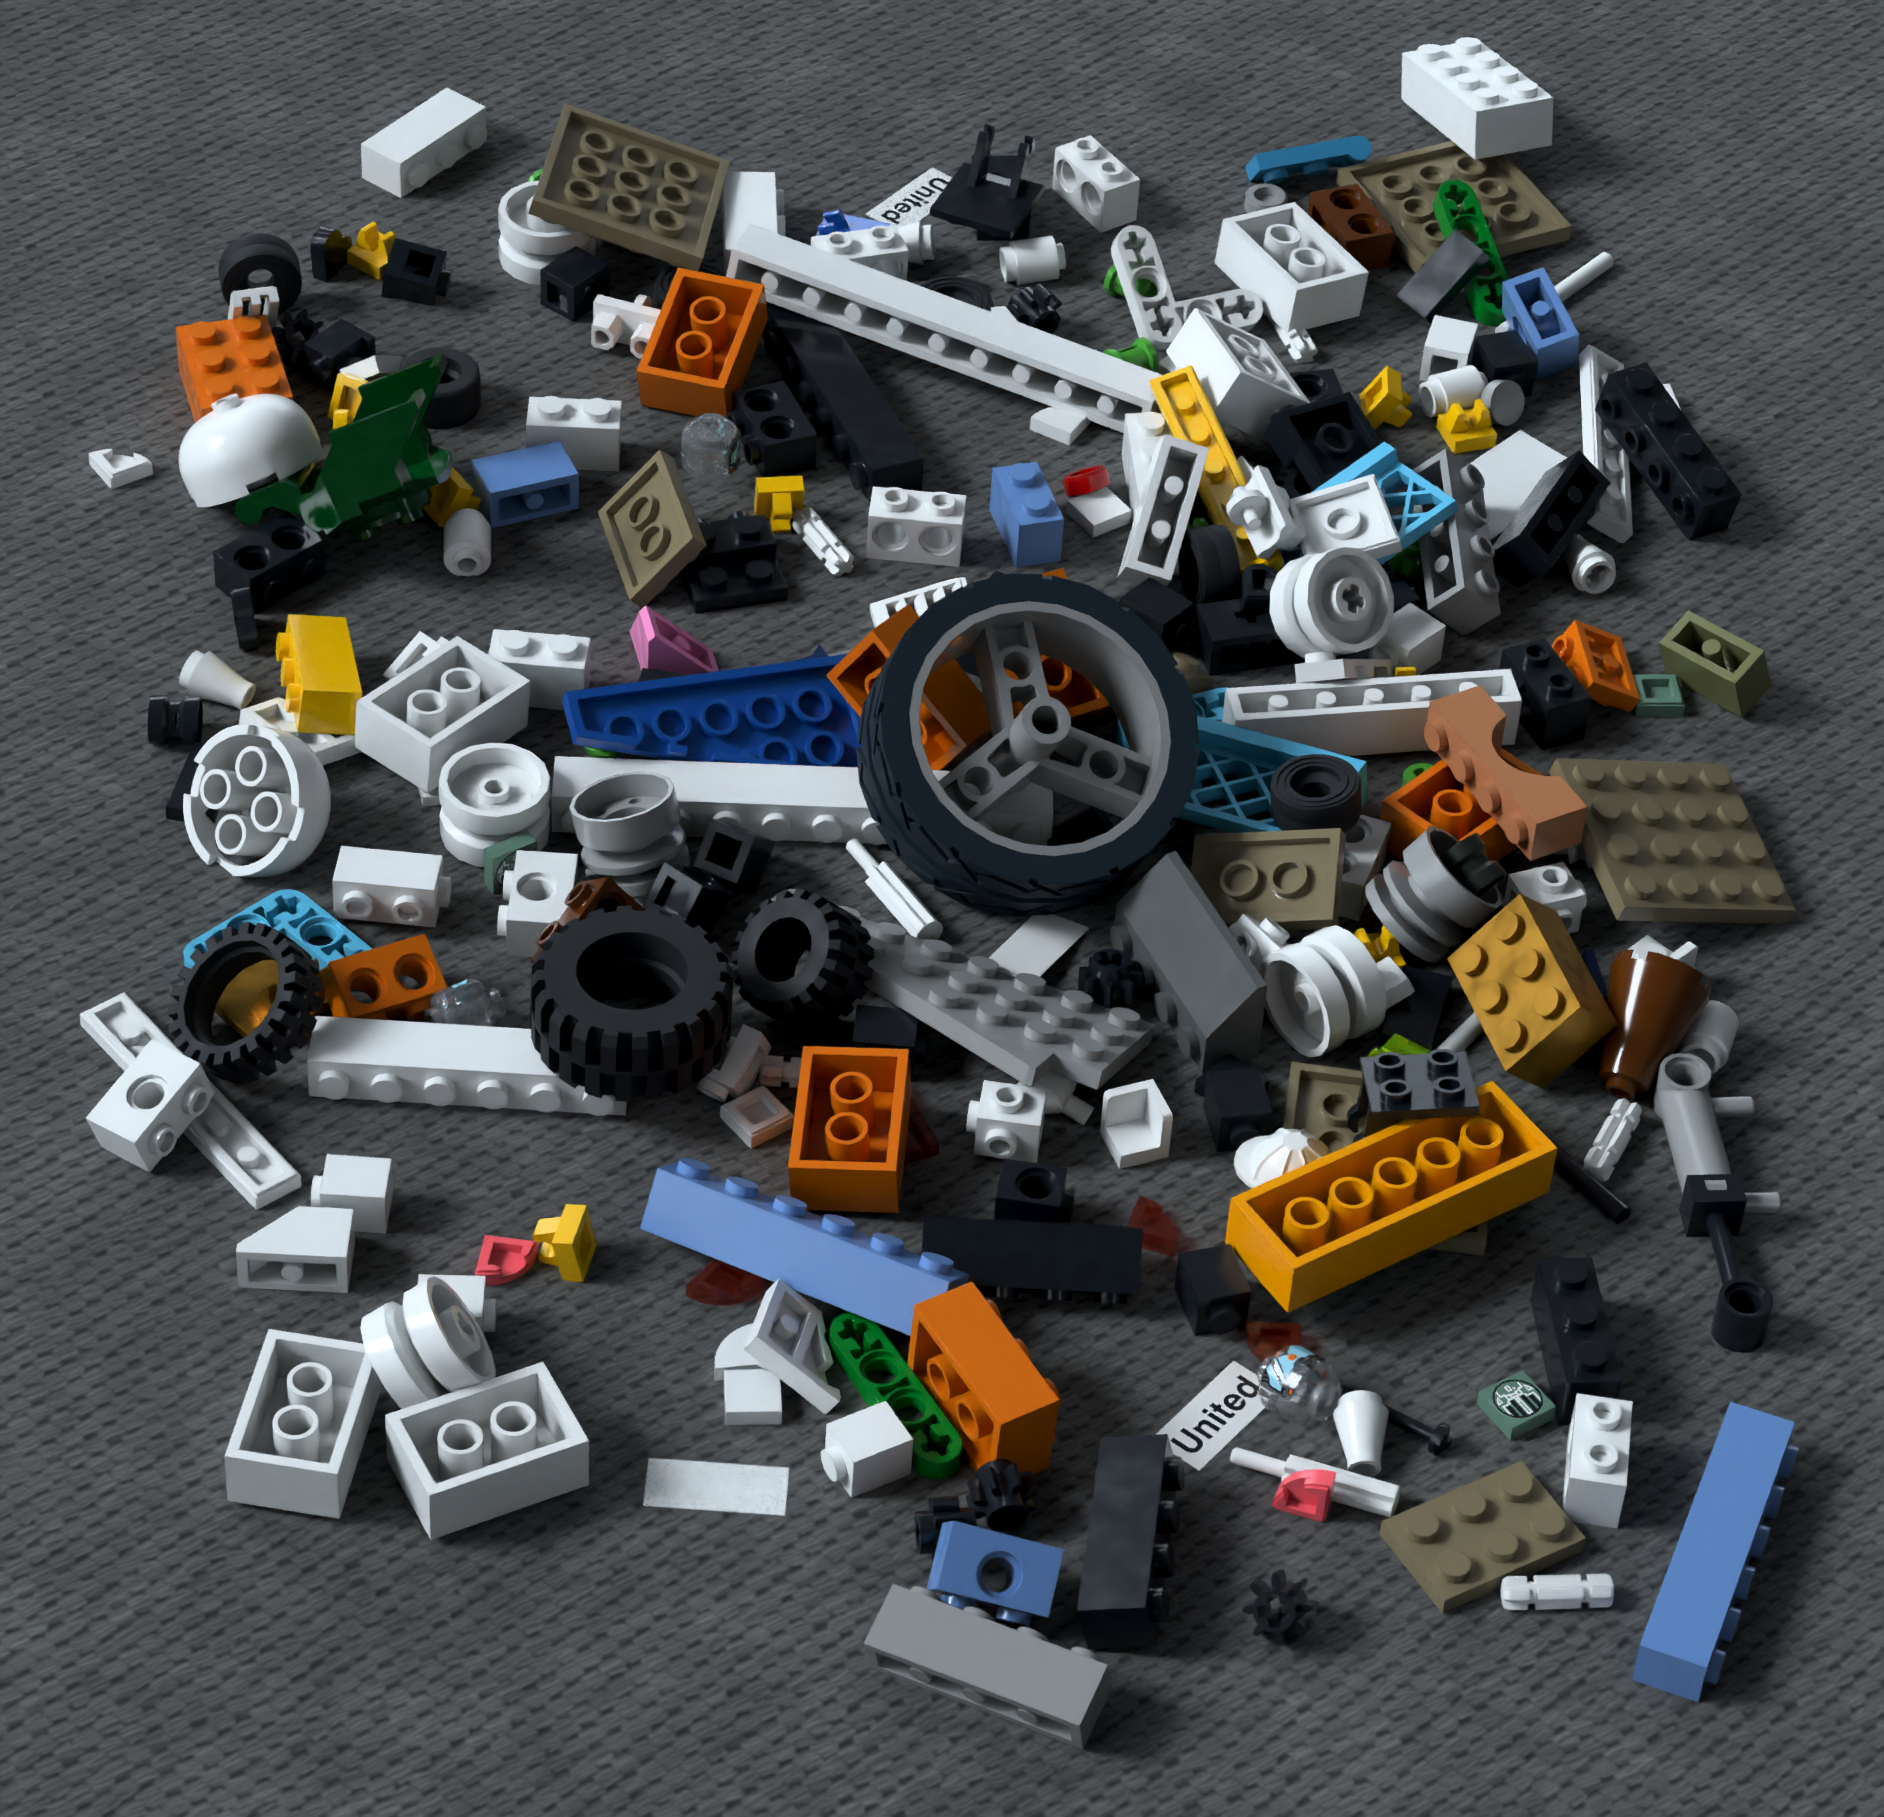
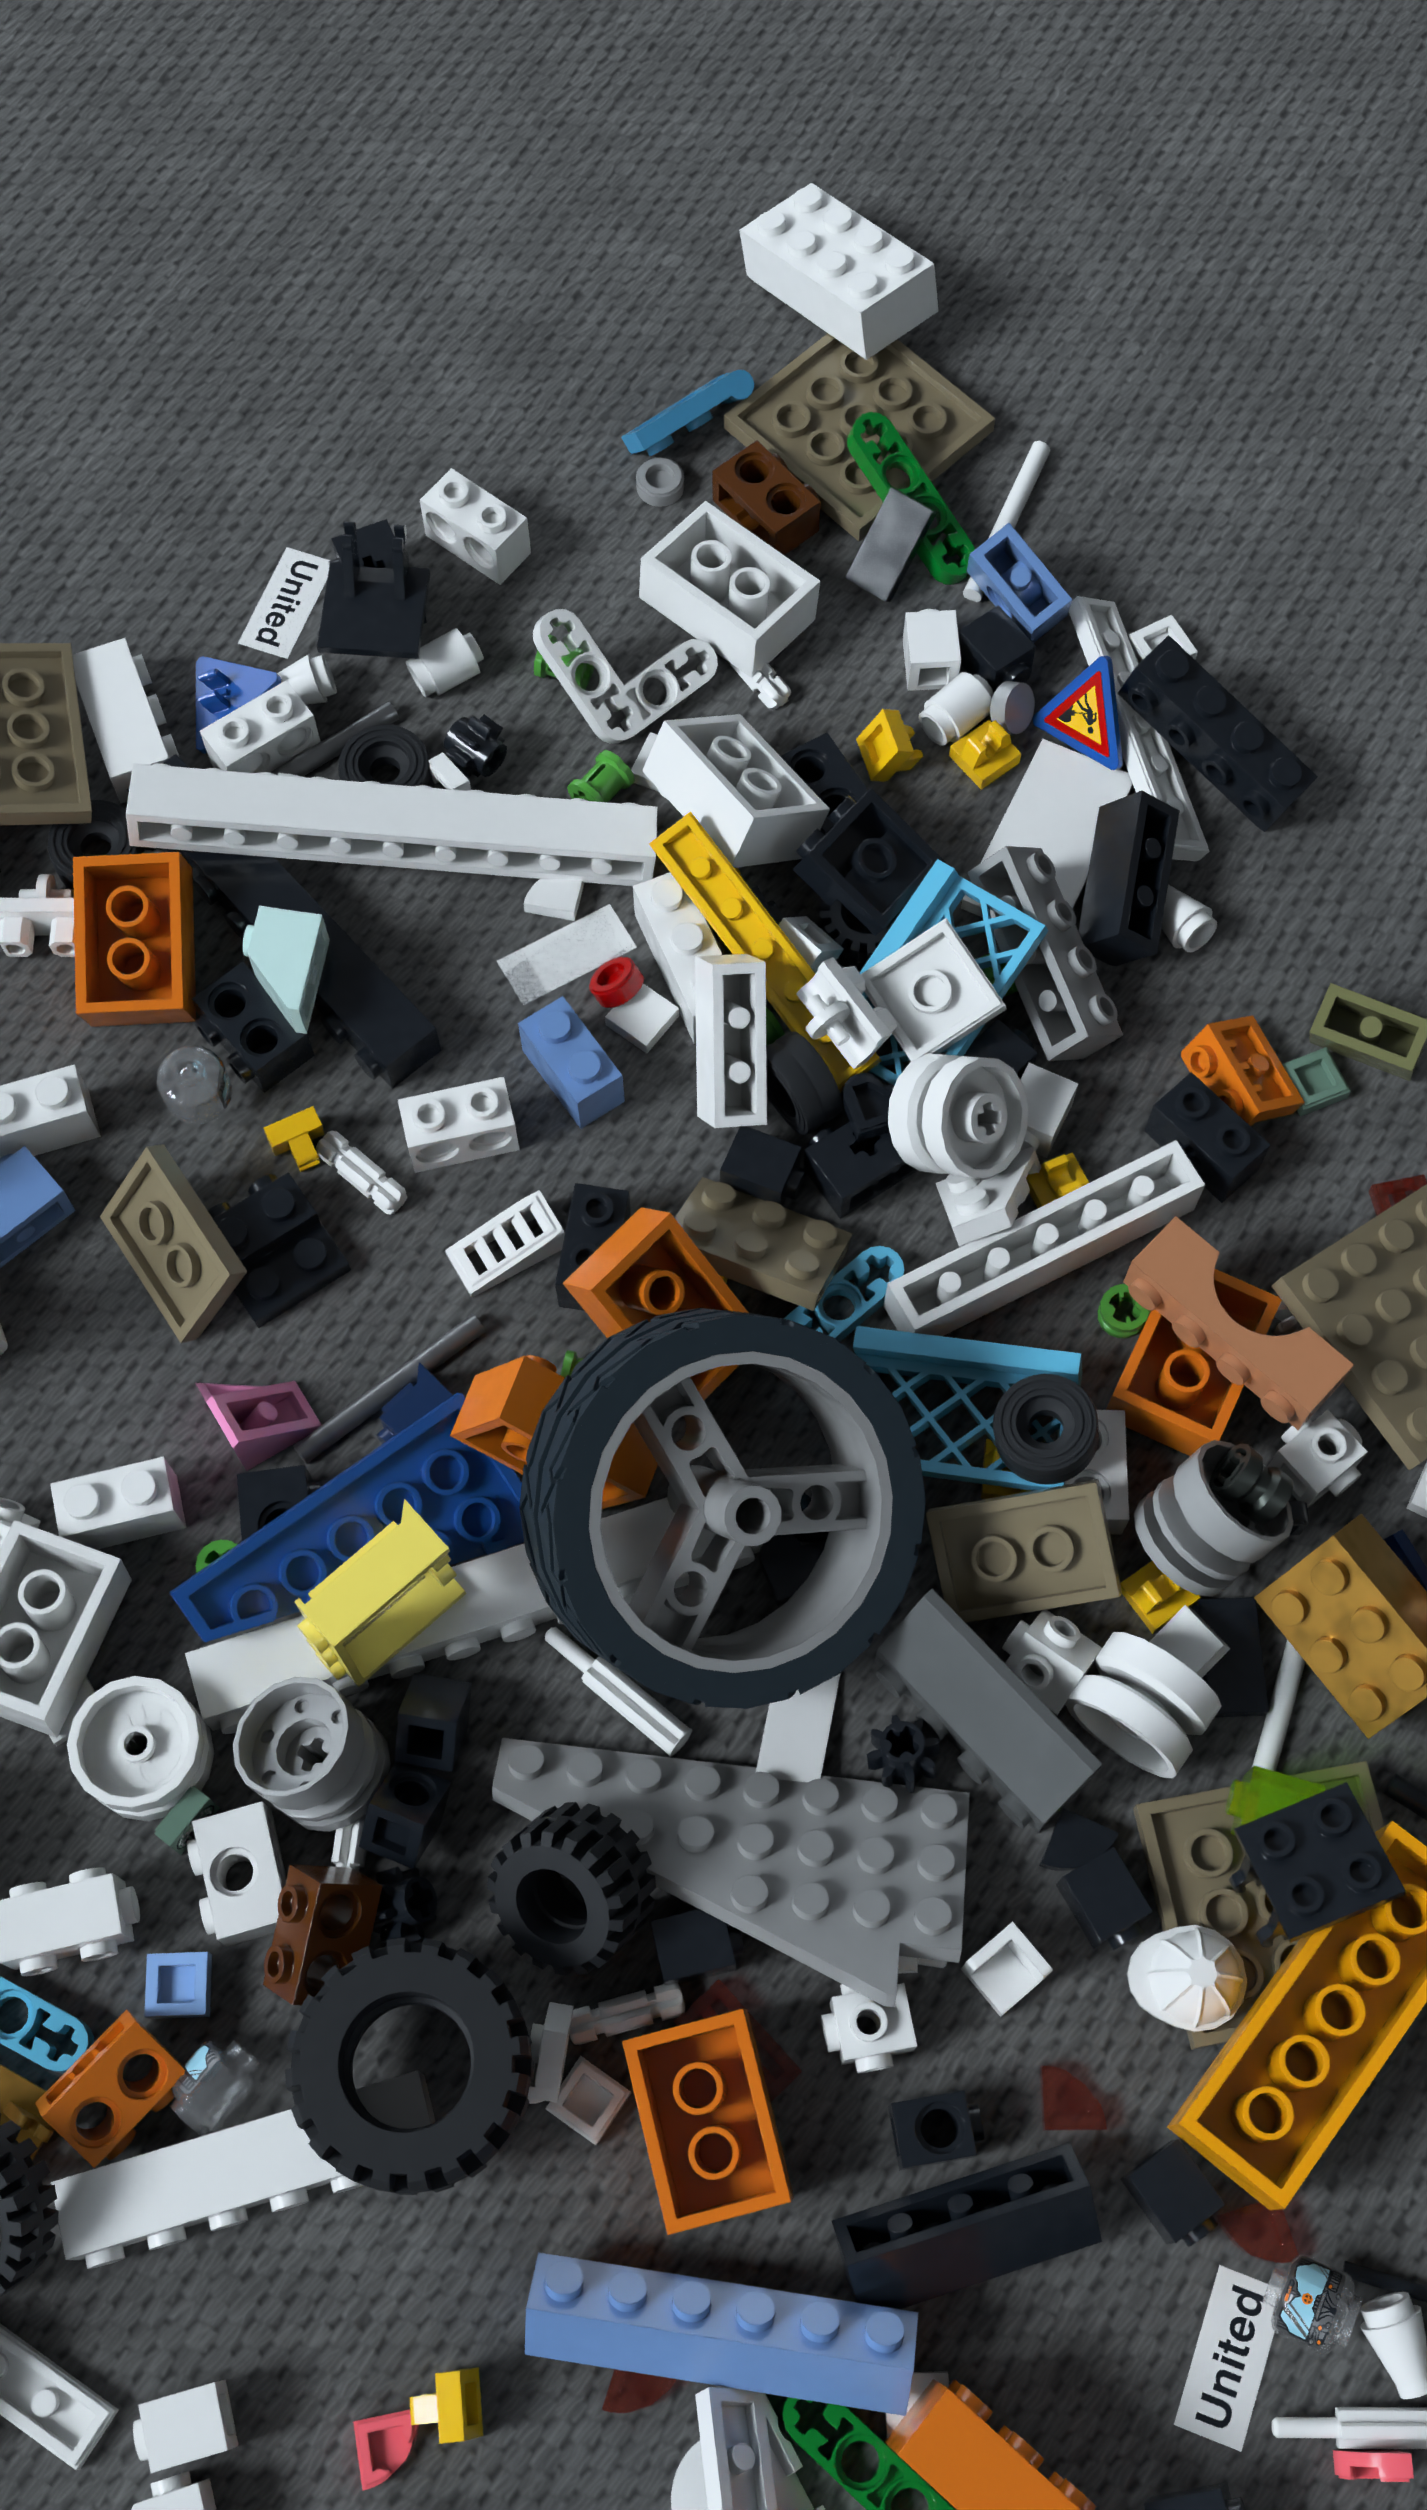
camera: 15 degrees left, 25 degrees up
(462, 953) = (178, 1985): none -> light blue plate
(729, 726) = (380, 1599): none -> light yellow window
(823, 378) = (288, 959): none -> light aqua slope
(1085, 452) = (592, 931): none -> white sticker
(1562, 414) = (1087, 715): none -> piece

